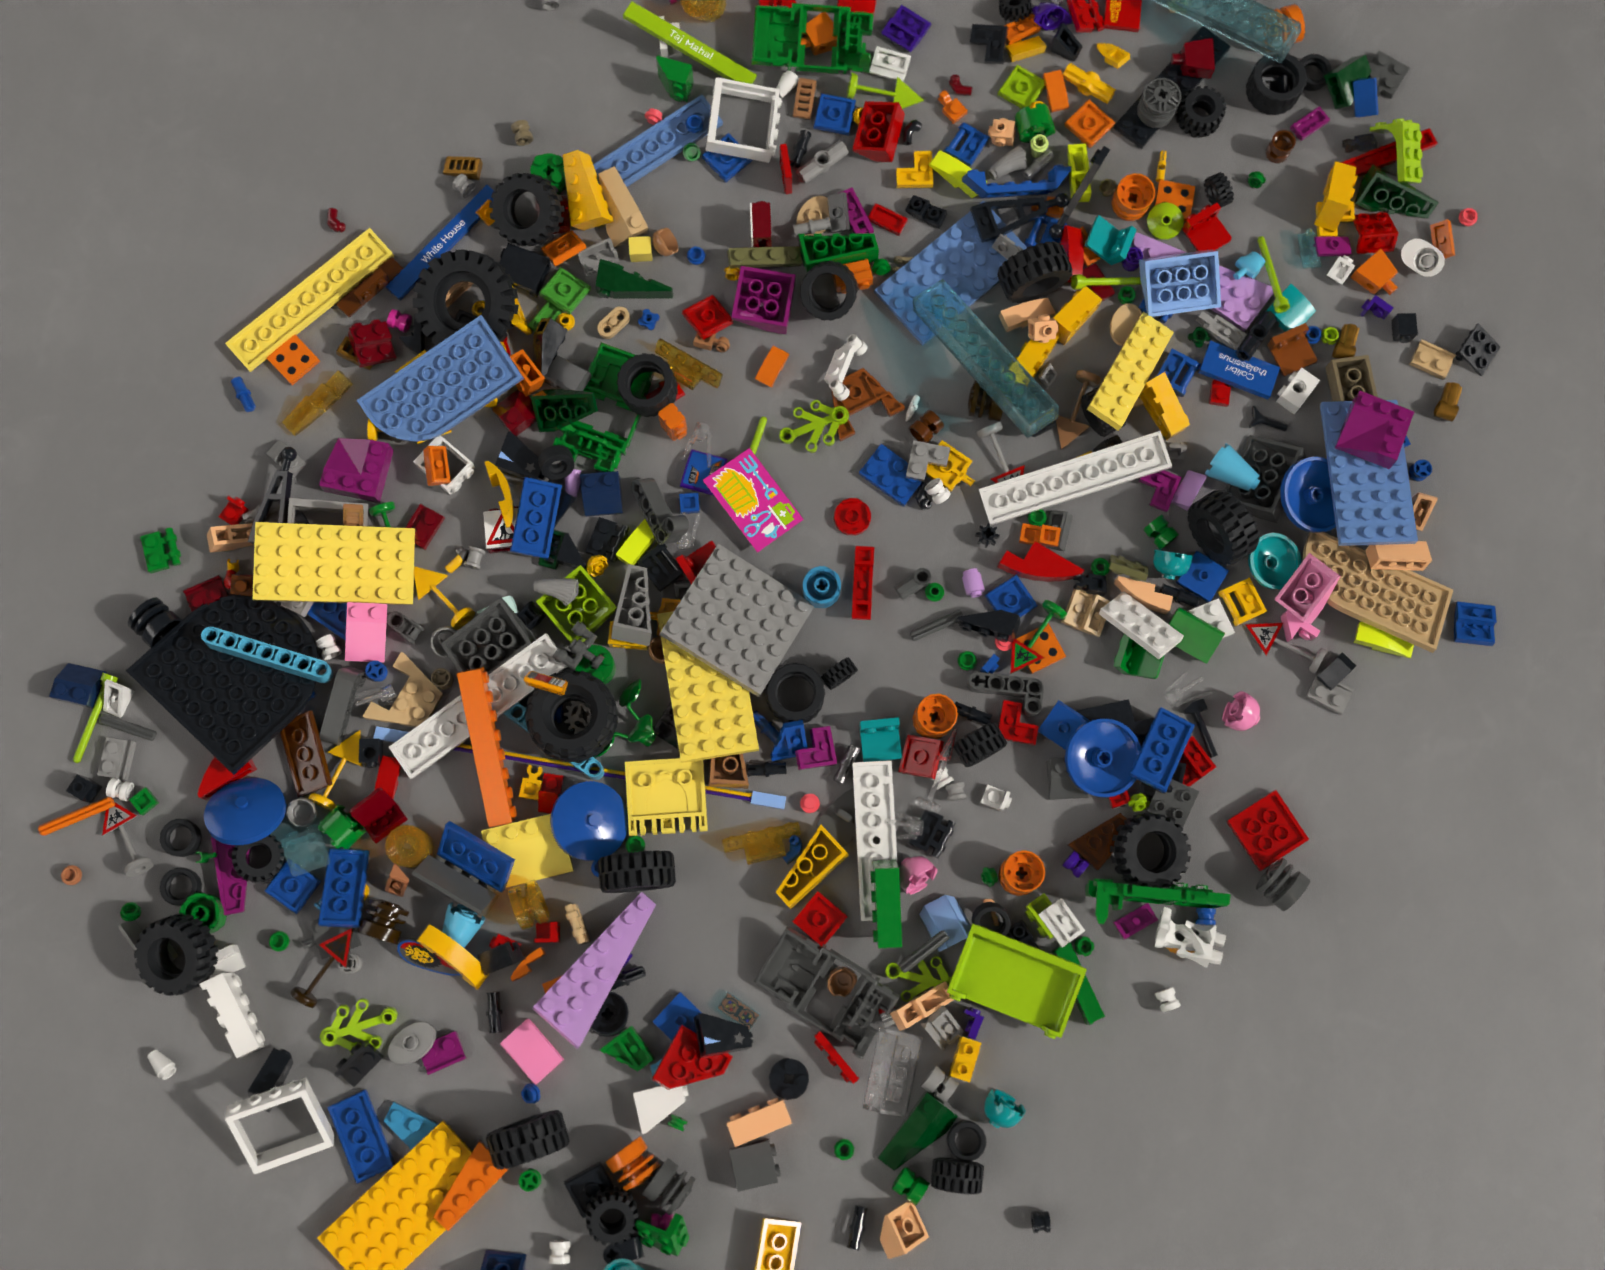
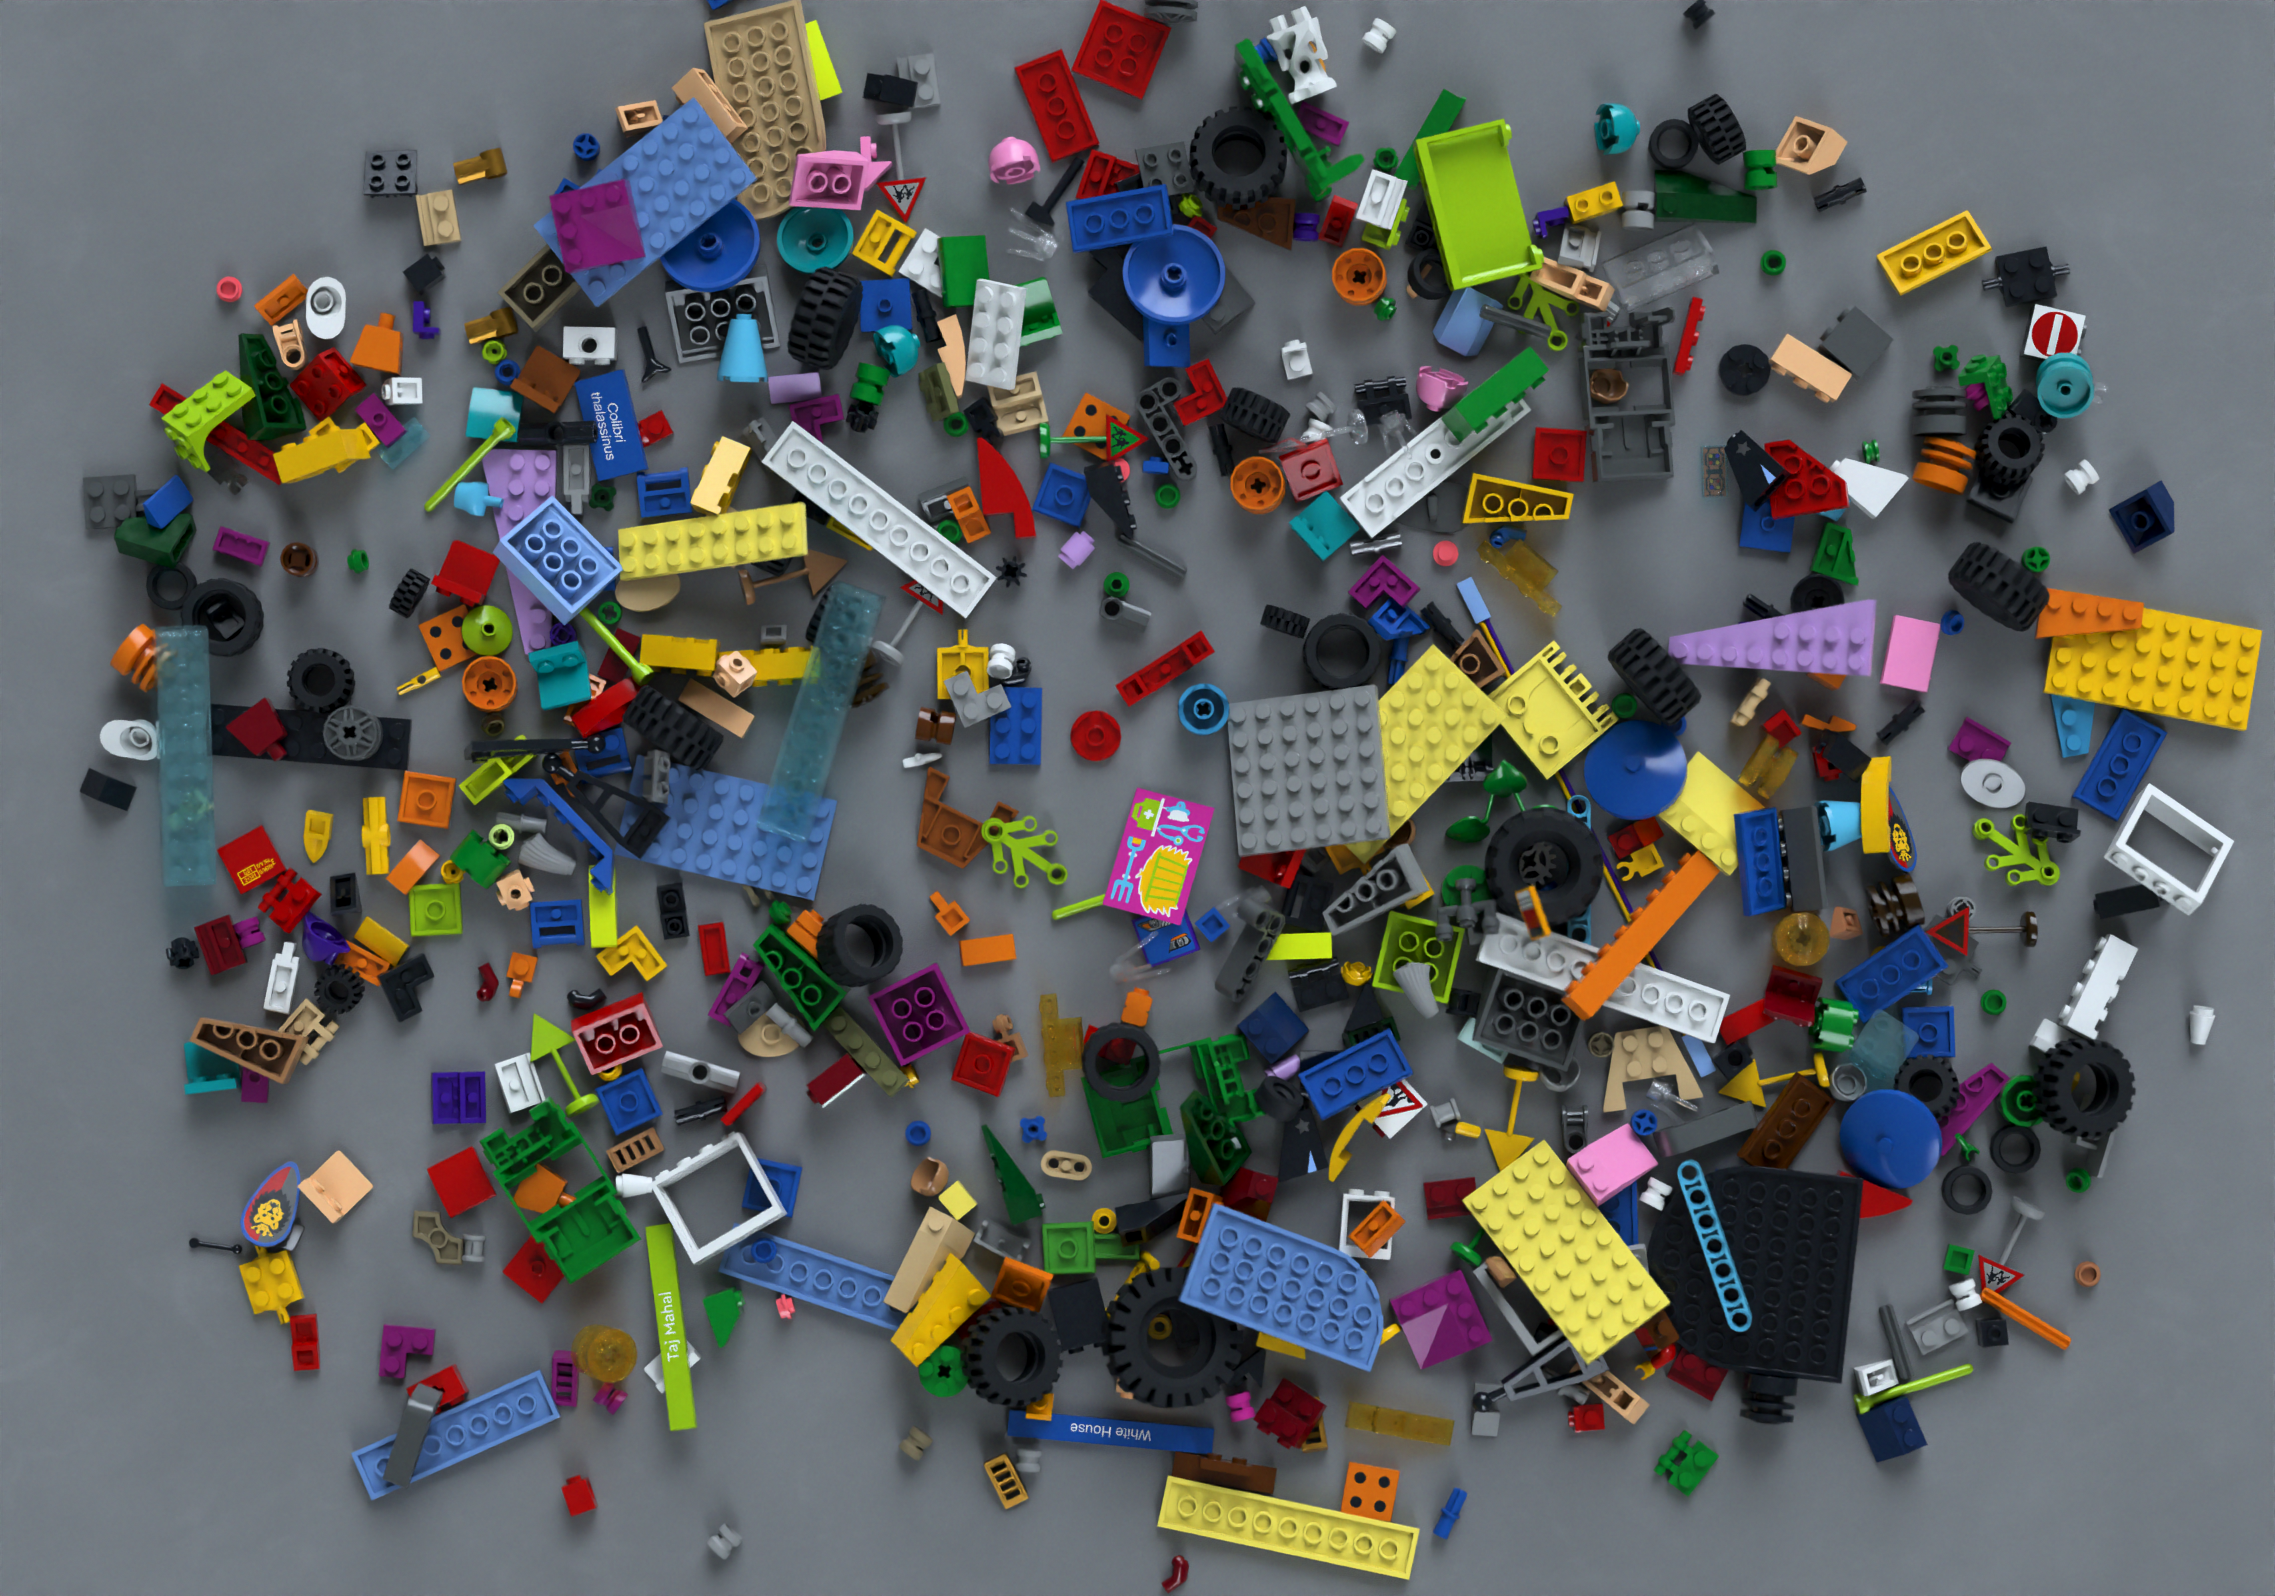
camera: 120 degrees left, 10 degrees up
(691, 151) = (796, 1231): green plate -> none
(695, 1220) = (1941, 363): none -> green plate
(808, 359) = (950, 915): none -> orange plate
(840, 364) = (932, 873): white plate -> none
(1066, 886) = (1338, 221): none -> red slope
(1143, 514) = (862, 417): none -> black gear
(1257, 766) = (1056, 106): none -> red tile
(1414, 226) = (291, 340): none -> light nougat piece

